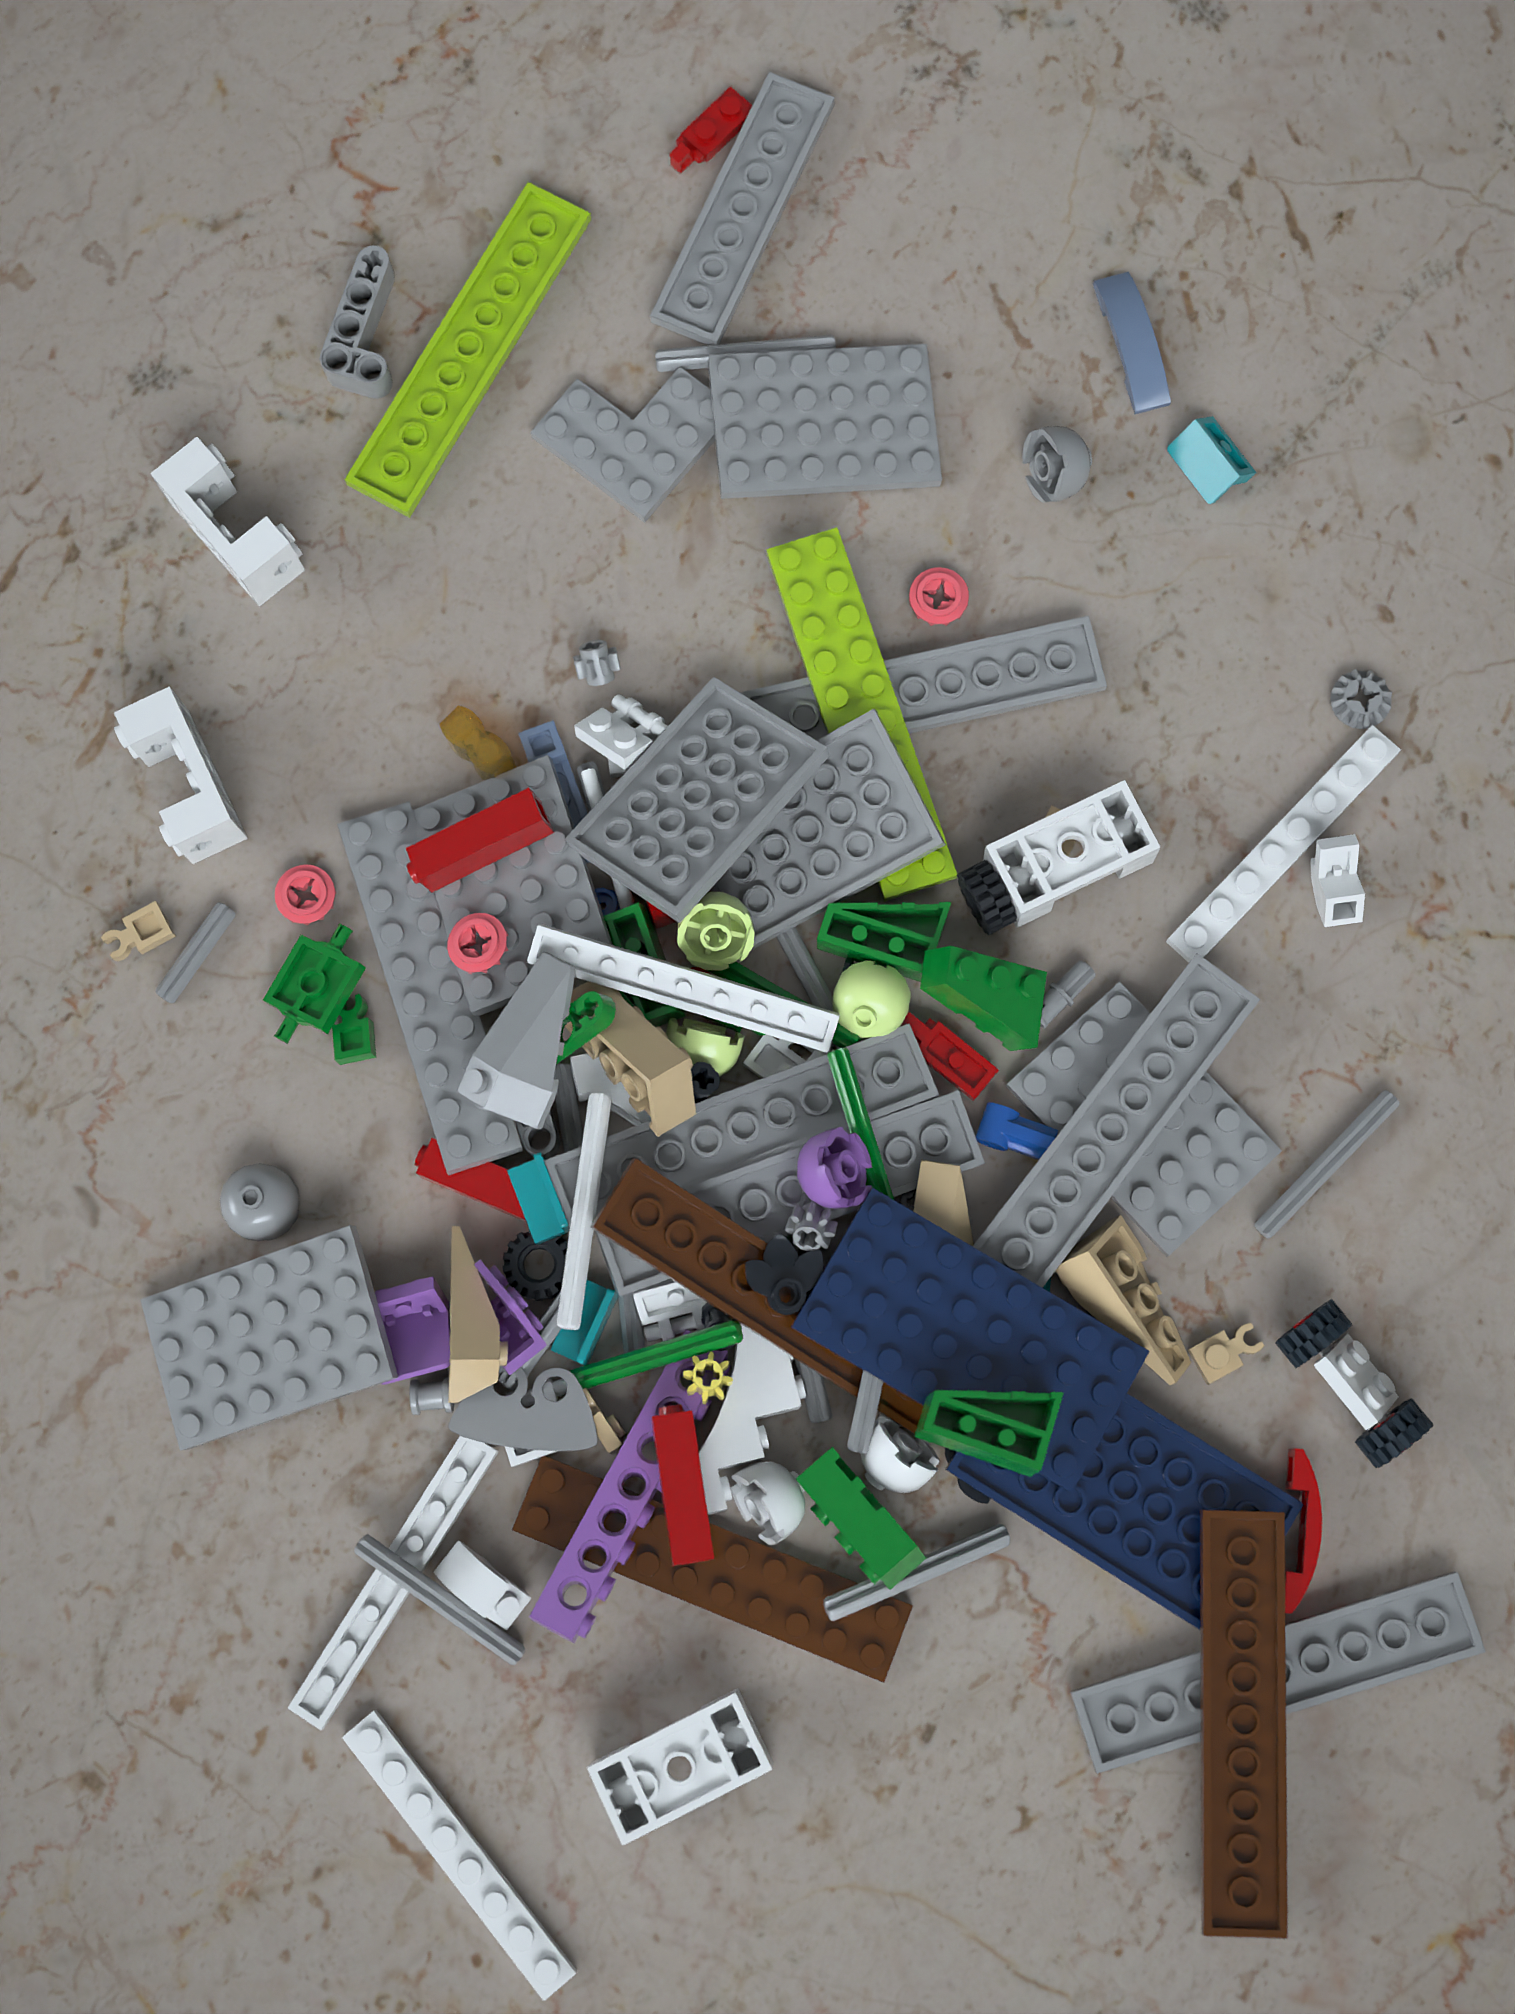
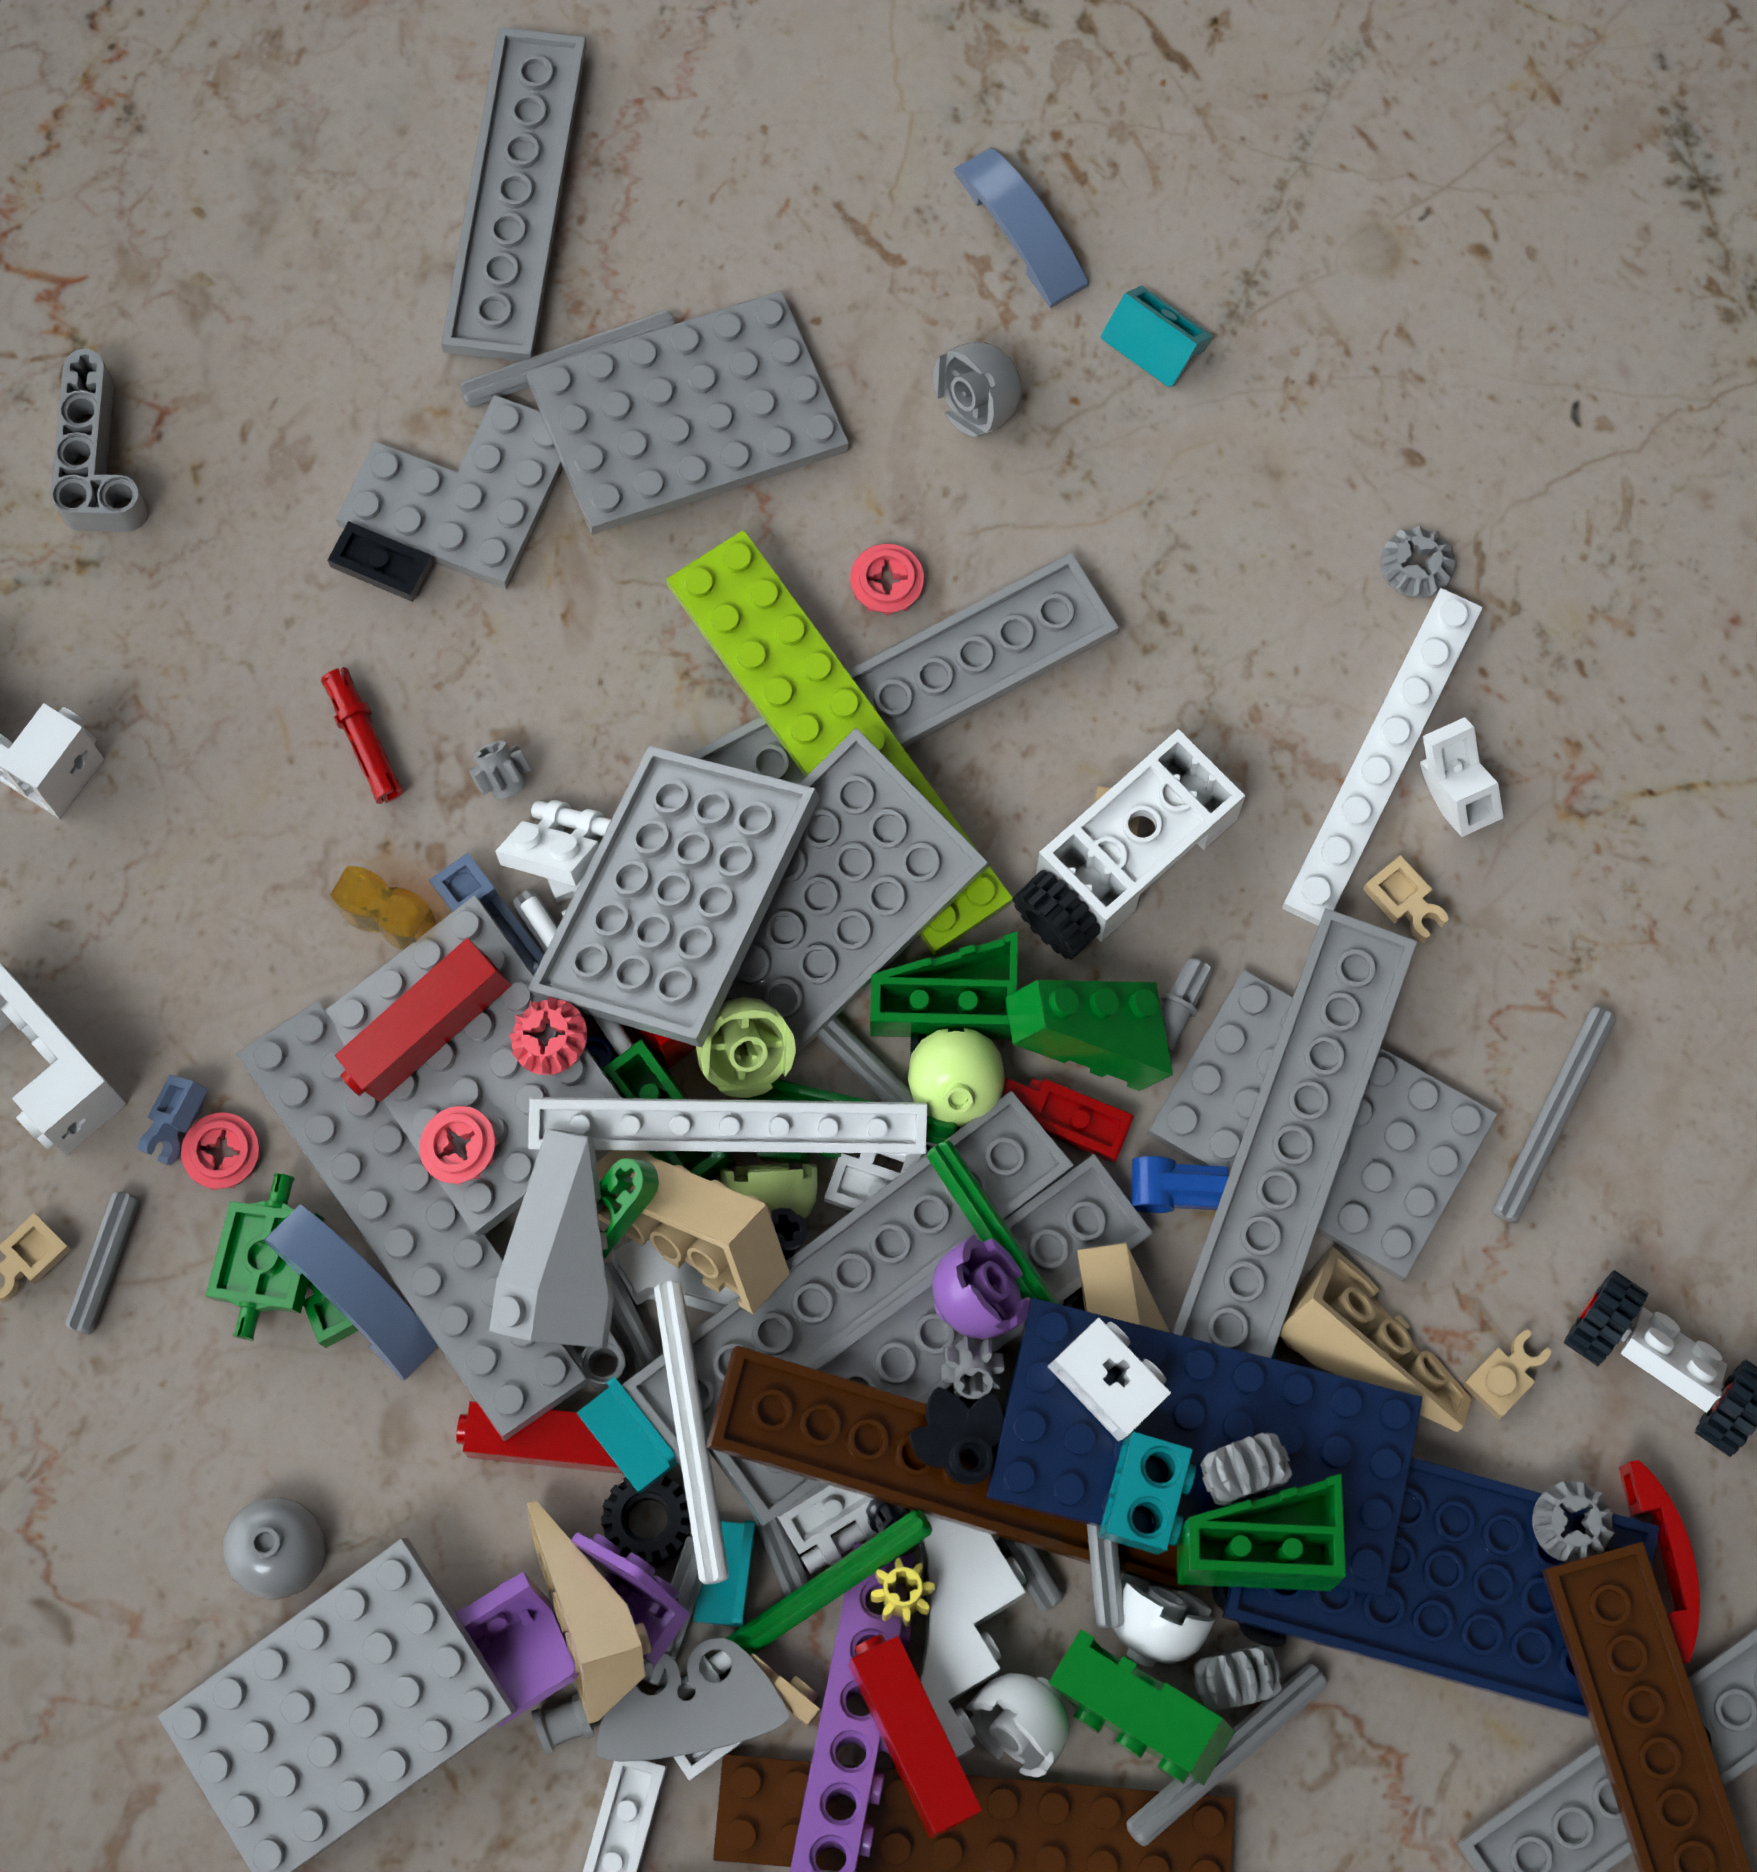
camera: 25 degrees left, 5 degrees down
(279, 854) = (172, 1112): none -> sand blue plate
(370, 1028) = (353, 1289): none -> sand blue slope
(468, 349) = (229, 445): lime plate -> none
(500, 600) = (355, 721): none -> red pin
(554, 474) = (380, 561): none -> black plate
(574, 894) = (561, 1050): none -> coral gear
(710, 130) = (448, 112): red hinge -> none
(902, 1355) = (1134, 1488): none -> teal brick
(908, 1289) = (1124, 1402): none -> white brick
(942, 1518) = (1237, 1677): none -> light grey gear
(992, 1366) = (1246, 1469): none -> light grey gear
(1218, 1474) = (1550, 1520): none -> light grey gear
(1262, 957) = (1401, 893): none -> tan plate

